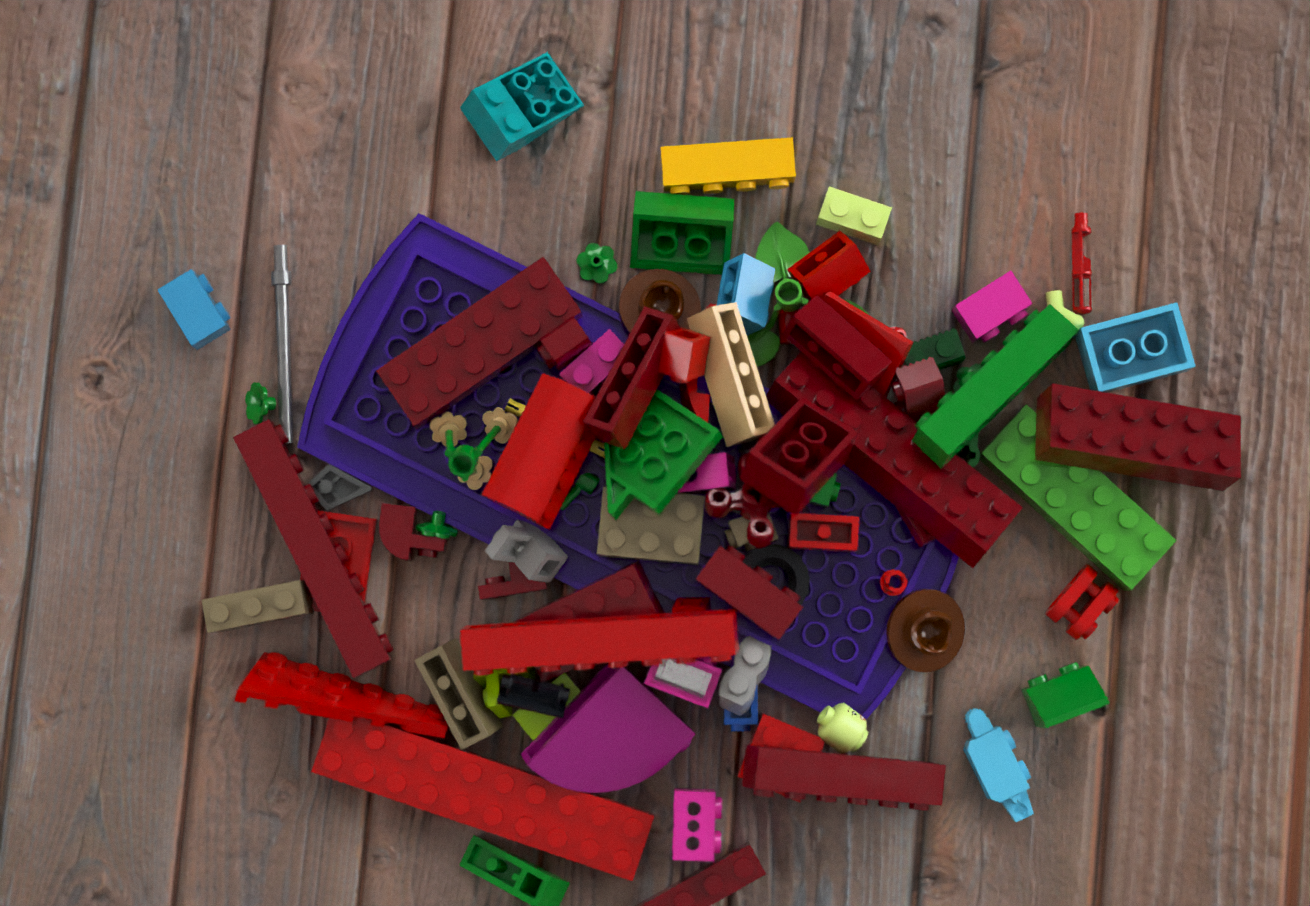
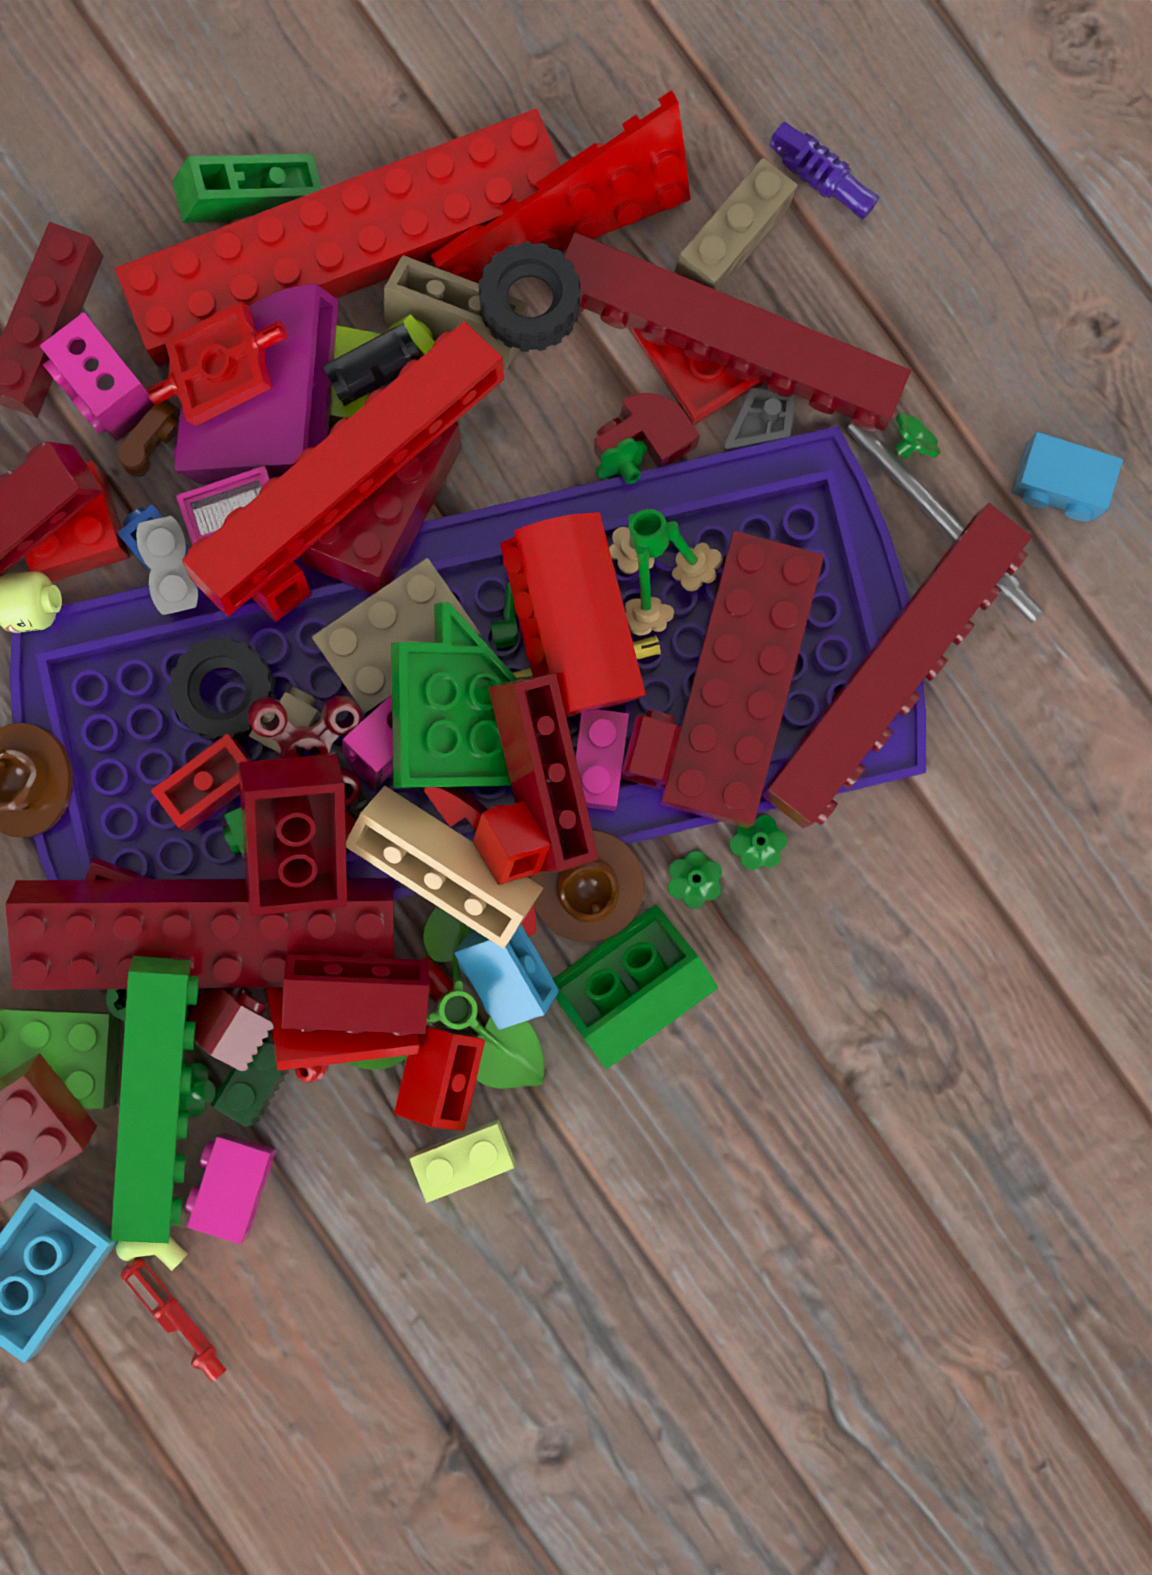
camera: 135 degrees right, 0 degrees up
(174, 603) = (822, 169): none -> dark purple hinge
(385, 279) = (896, 667): none -> dark red brick
(387, 663) = (523, 262): none -> black tyre
(497, 587) = (488, 479): dark red slope -> none
(520, 105) = (919, 978): teal slope -> none
(529, 549) = (494, 510): light grey brick -> none
(544, 242) = (751, 853): none -> green plant
(620, 768) = (218, 364): none -> red plate
(682, 772) = (156, 426): none -> reddish brown plate
(728, 165) = (644, 1101): yellow brick -> none
(750, 591) = (230, 651): dark red brick -> none
(885, 579) = (100, 800): red pin -> none

